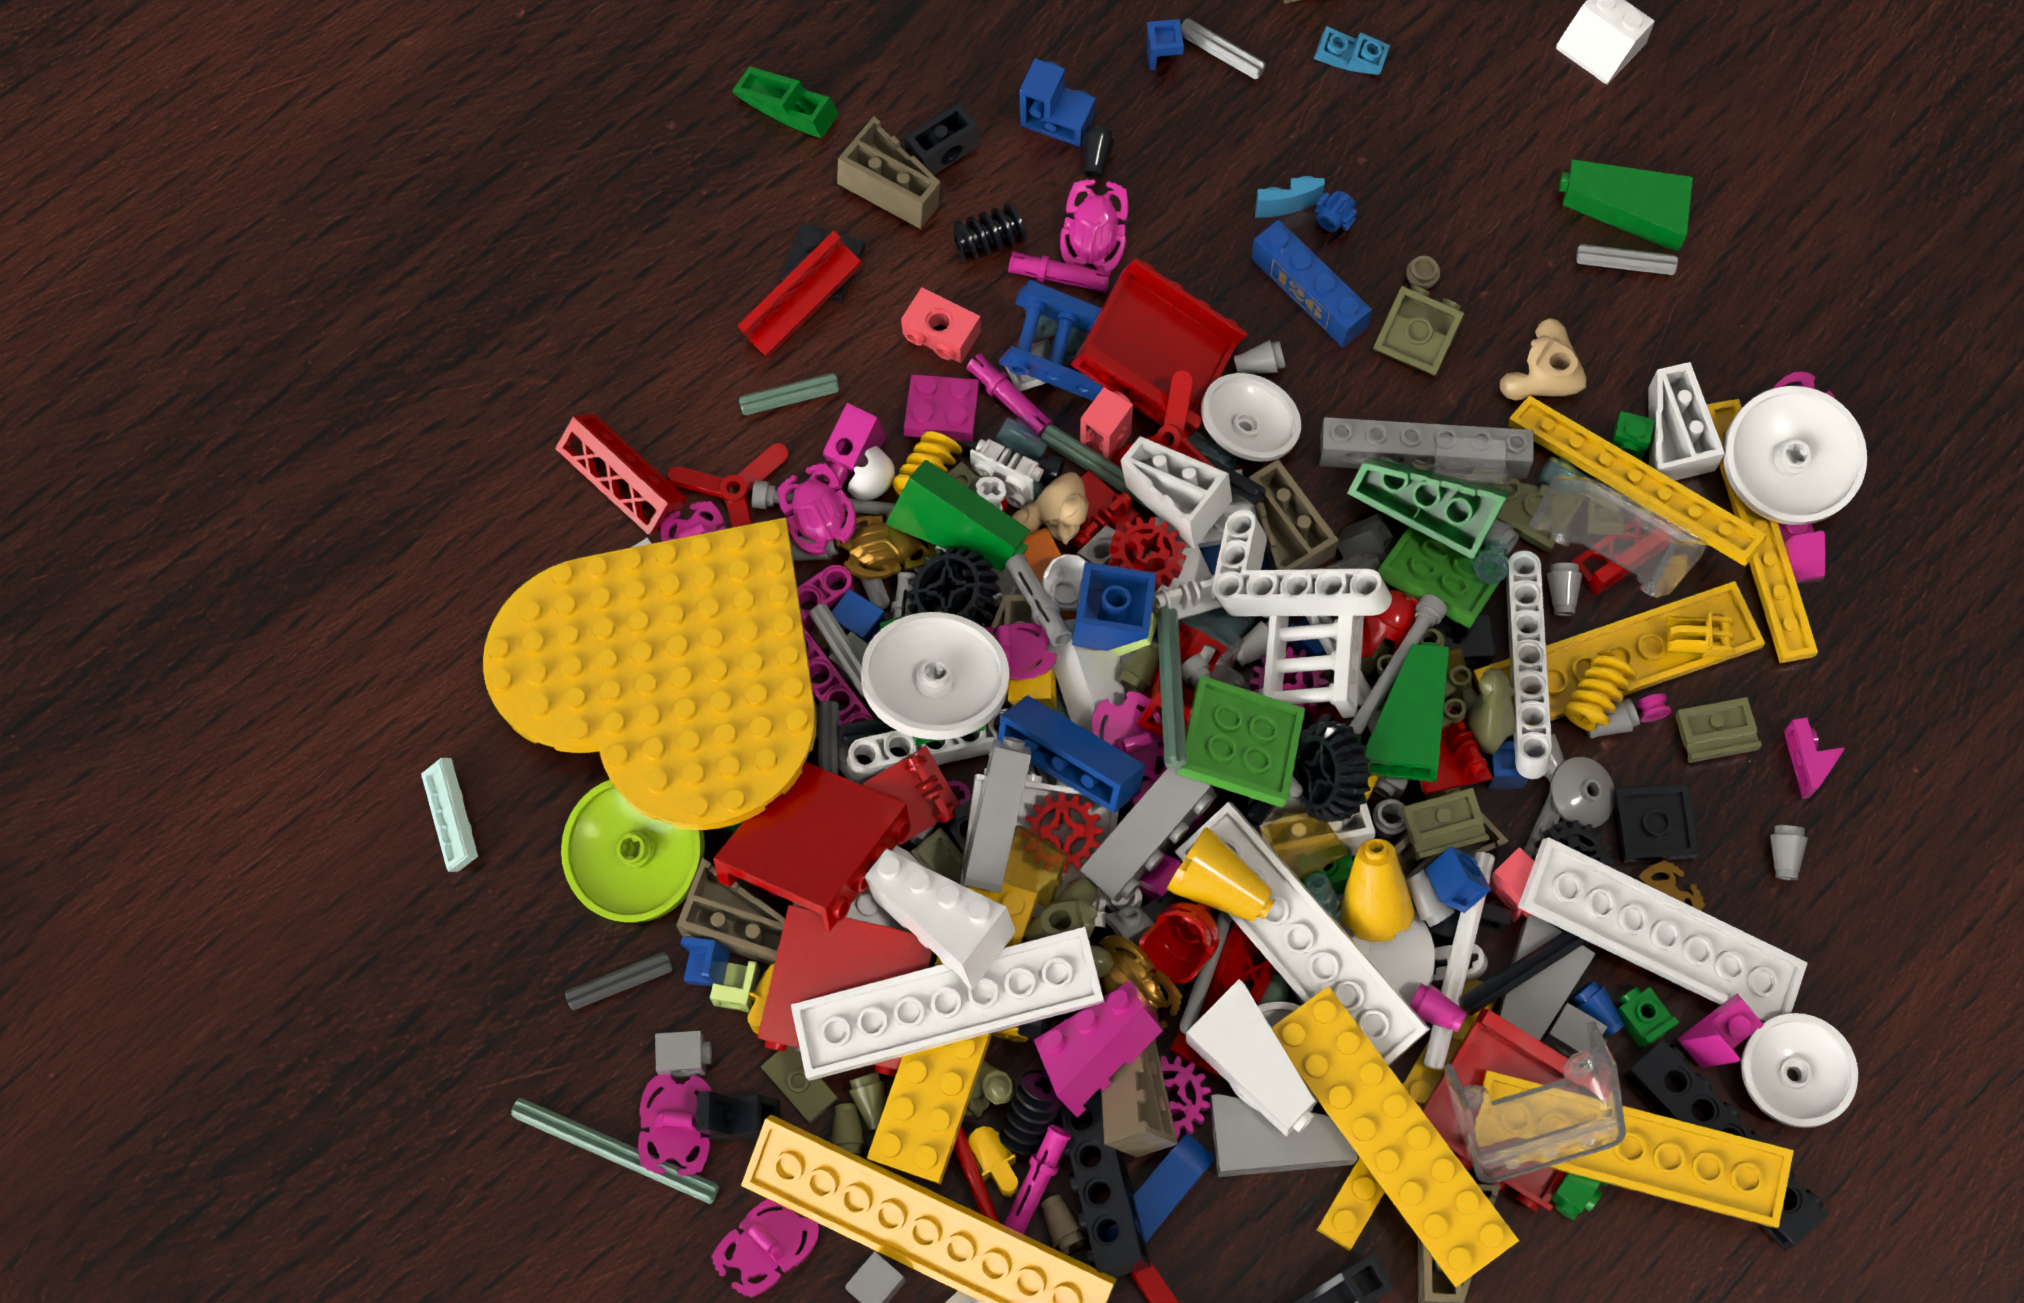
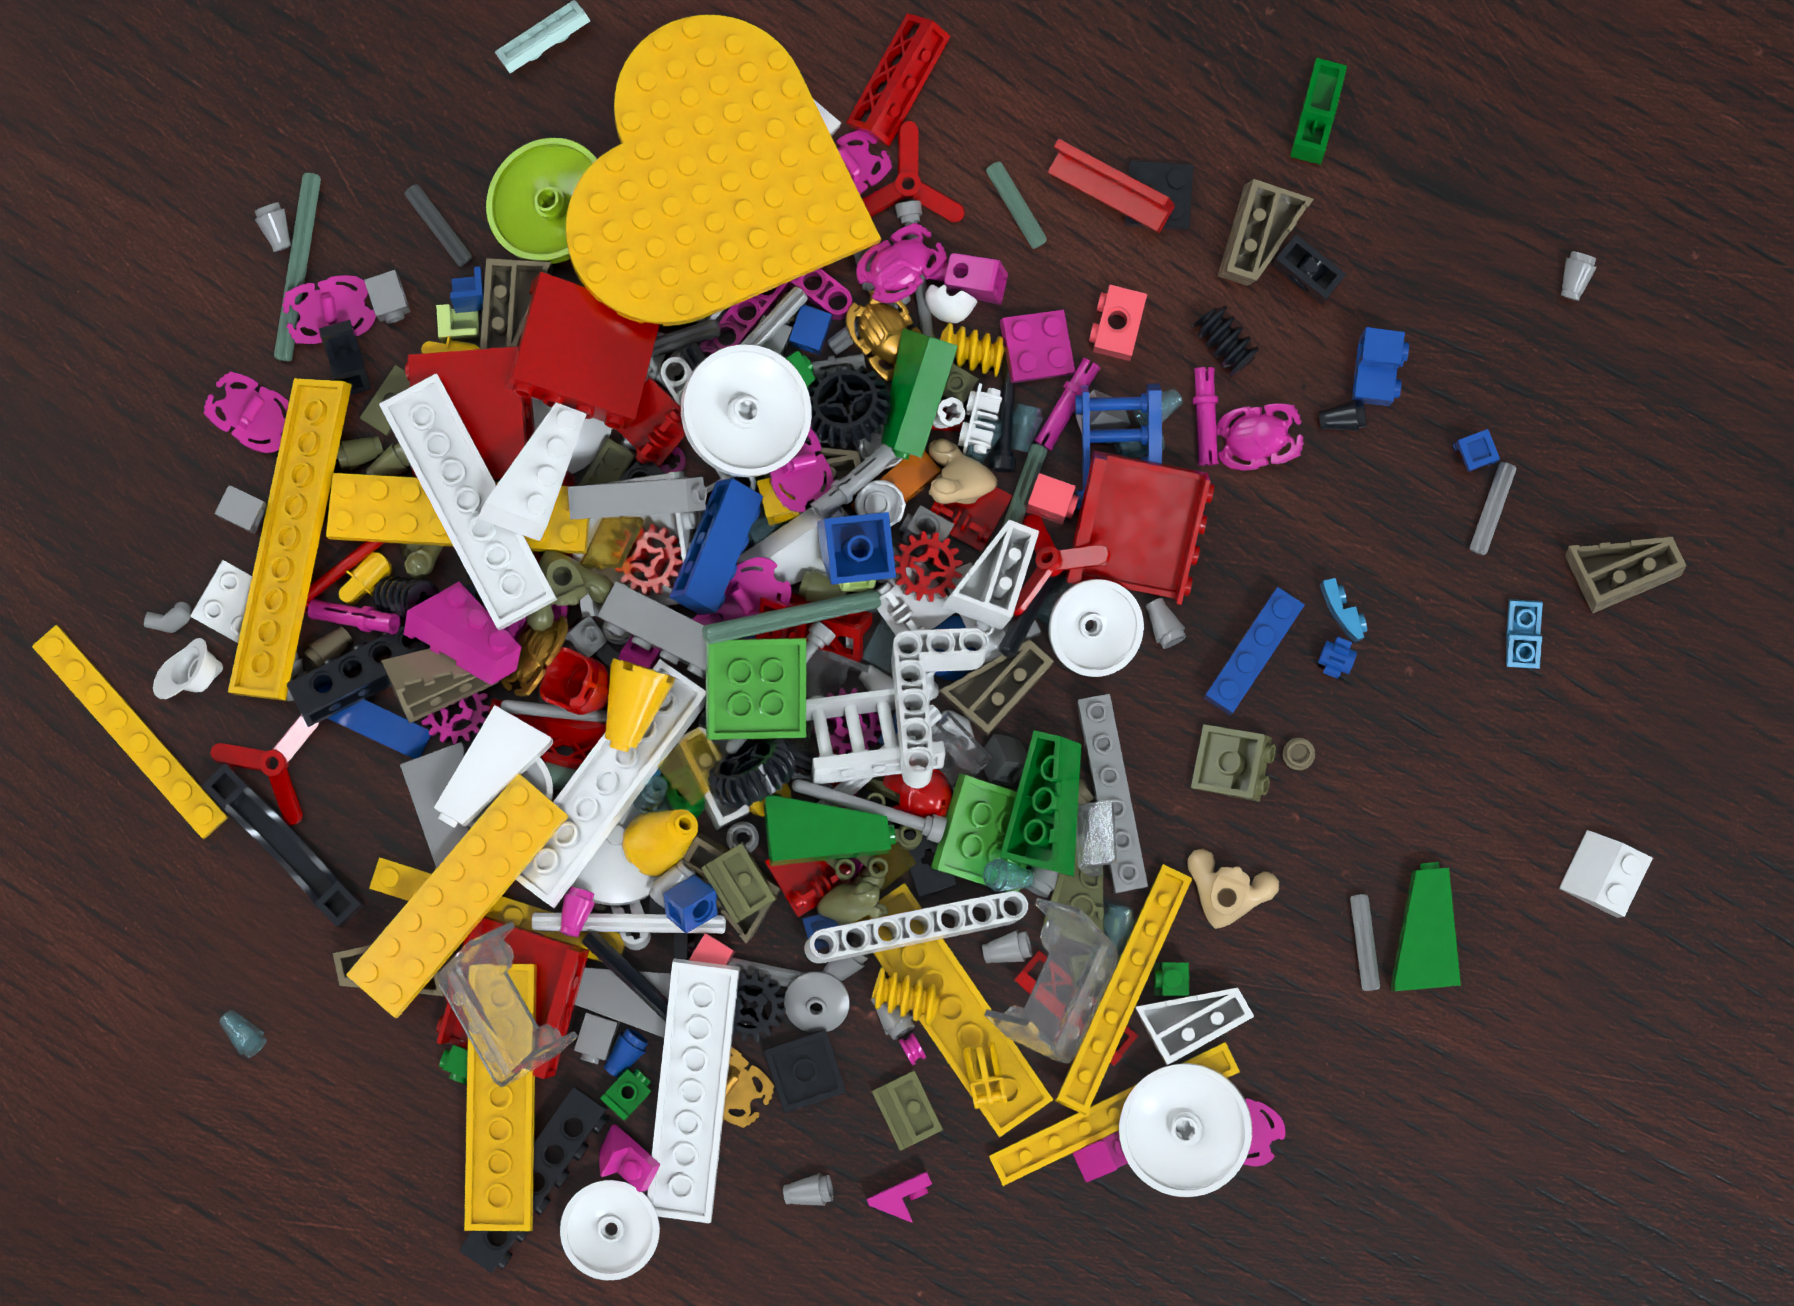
camera: 75 degrees right, 15 degrees up
(559, 1163) = (274, 226): none -> light grey cone

